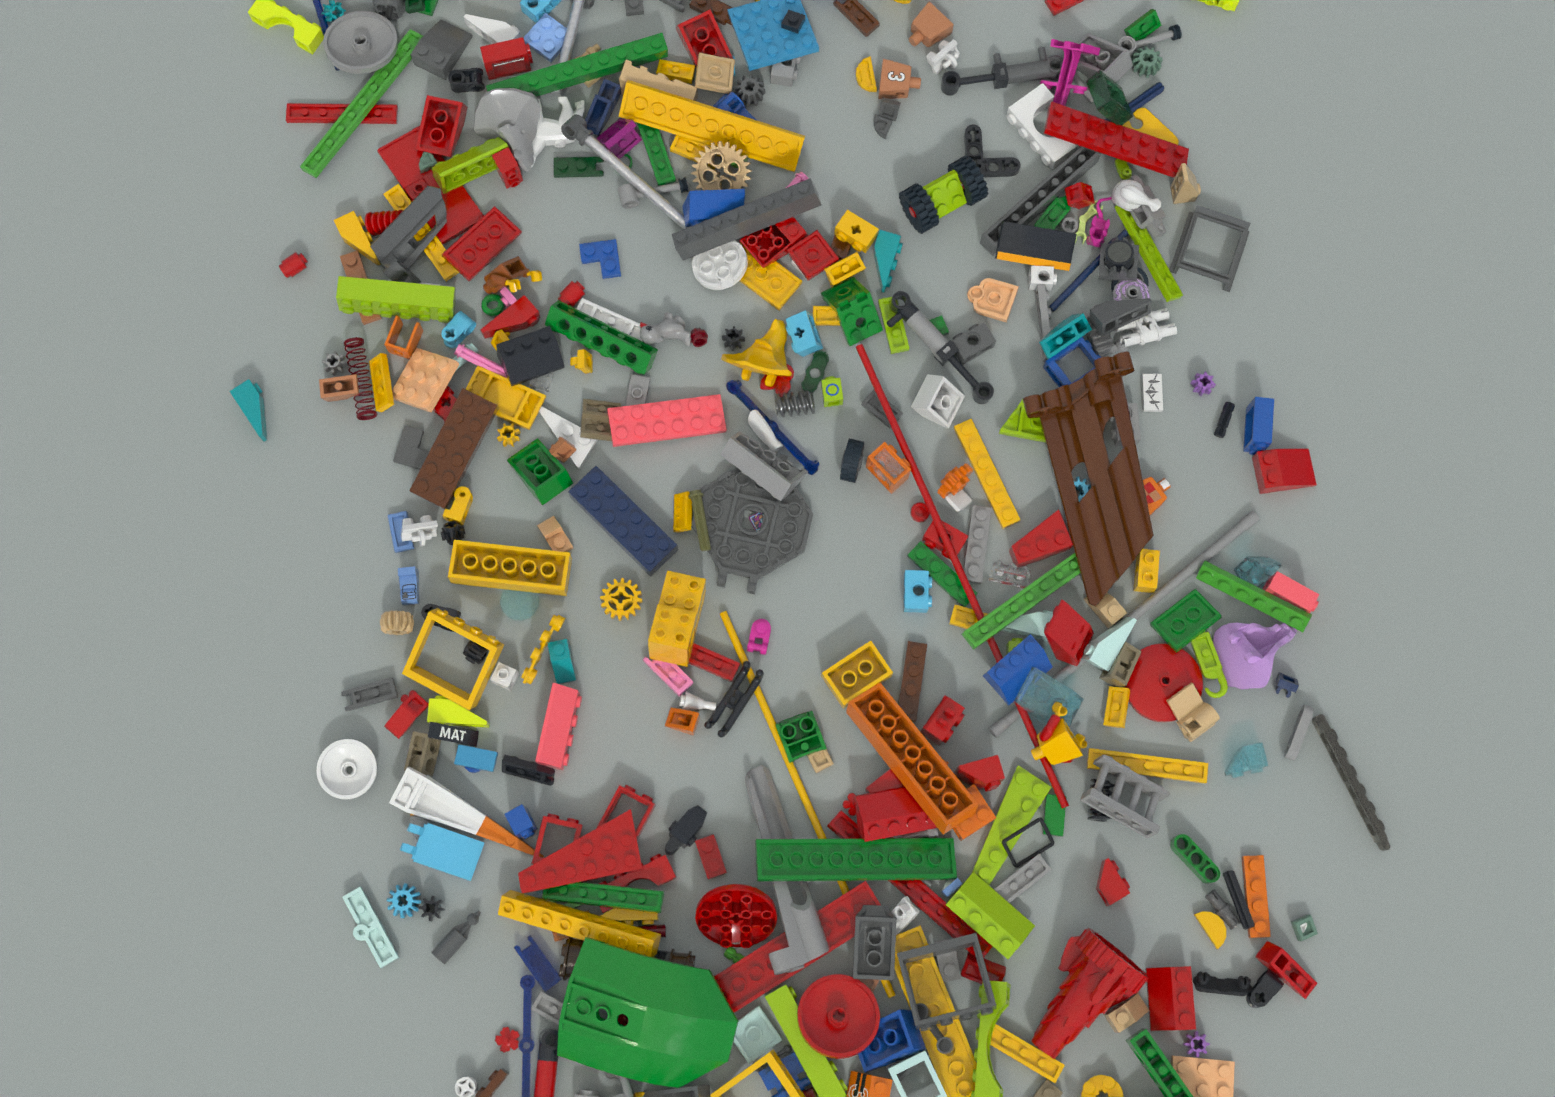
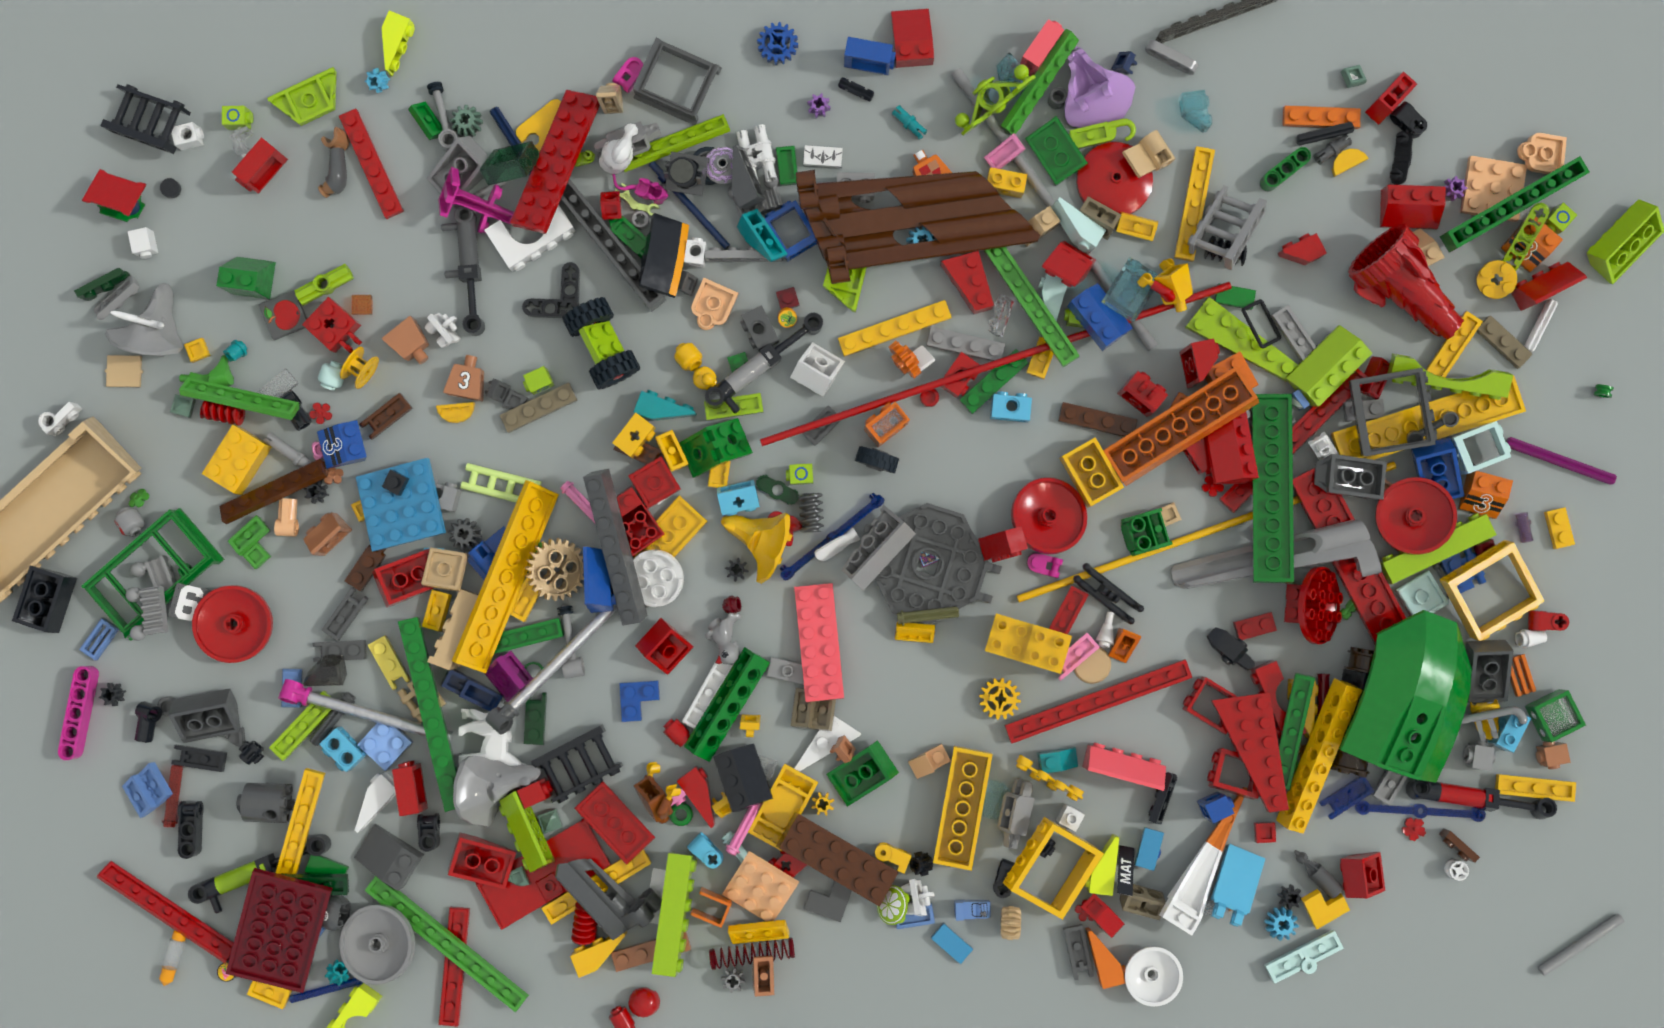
camera: 85 degrees left, 10 degrees up
(311, 284) = (644, 1002): none -> red hair
(359, 722) = (1108, 968): none -> orange slope
(375, 570) = (951, 943): none -> dark azure tile
(411, 507) = (894, 906): none -> dish
(417, 943) = (1321, 911): none -> yellow tile
(457, 985) = (1362, 875): none -> red slope
(481, 187) = (549, 821): none -> sand green tile
(497, 878) = (1265, 832): none -> red plate
(506, 621) = (1016, 812): none -> light grey hinge
(546, 191) = (579, 745): none -> black fence
(623, 521) = (920, 692): dark blue brick -> none
(624, 699) = (1098, 701): none -> red plate
(626, 33) = (388, 661): none -> light yellow hinge
(654, 276) = (664, 646): none -> red slope
(658, 694) = (1095, 667): none -> tan piece
(776, 587) = (1003, 544): none -> red wedge
(809, 112) = (494, 474): none -> yellowish green bar
(809, 634) = (1050, 515): none -> red dish
(876, 148) = (538, 407): none -> dark tan plate
(902, 144) = (538, 380): none -> lime brick
(919, 294) = (704, 378): none -> yellow animal
(938, 278) = (688, 356): none -> yellow head
(987, 368) = (787, 317): none -> tile
(1005, 369) = (787, 298): none -> dark red plate
(1011, 271) = (687, 283): none -> dark grey tile
(1145, 358) = (786, 165): none -> green tile
(1177, 568) = (1005, 152): none -> bright pink tile
(1197, 473) = (909, 122): none -> teal pin
(1217, 203) = (632, 68): none -> dark pink plate
(1223, 544) = (983, 101): none -> lime piece
(1244, 611) = (1057, 91): none -> dark grey beam
(1264, 348) = (772, 48): none -> blue gear

